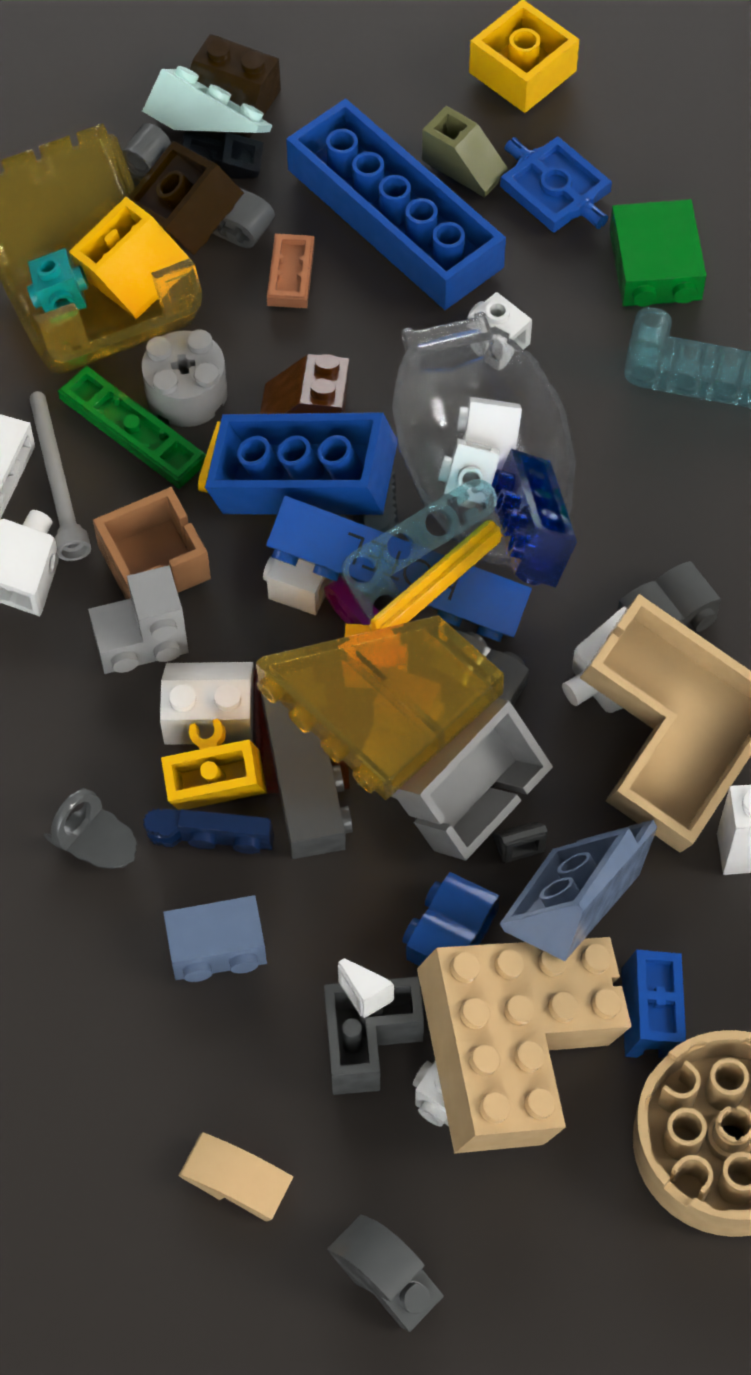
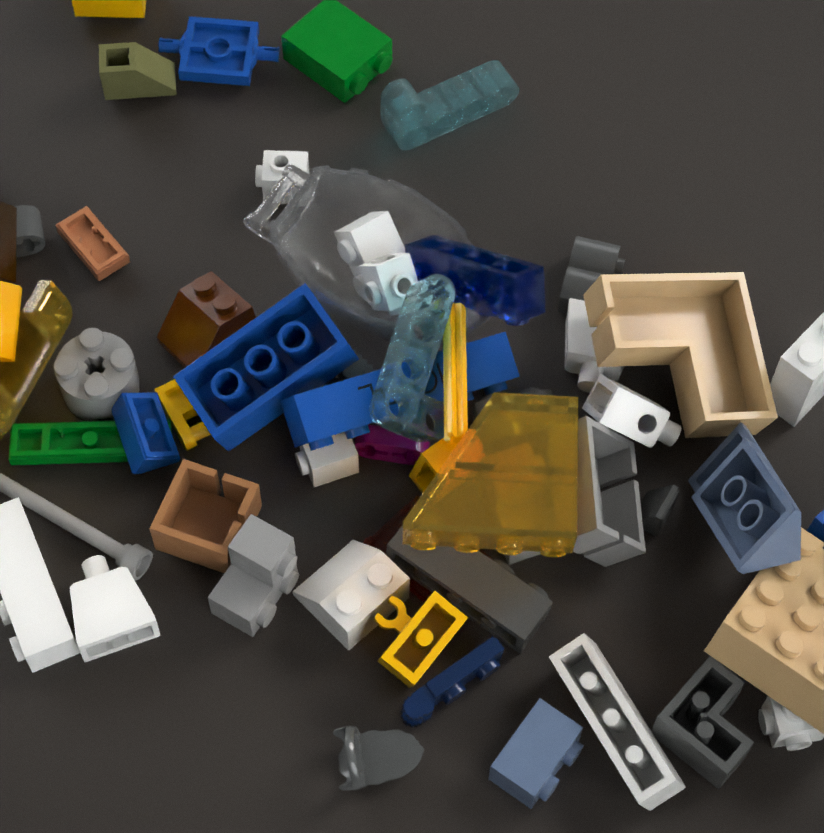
camera: 45 degrees left, 0 degrees up
(175, 447) = (144, 432): none -> blue slope
(298, 967) = (617, 722): none -> white brick
(364, 988) = (692, 694): white slope -> none
(396, 203) = (123, 140): blue brick -> none
(455, 917) = (678, 605): blue brick -> none
(572, 741) = (630, 413): none -> white torso

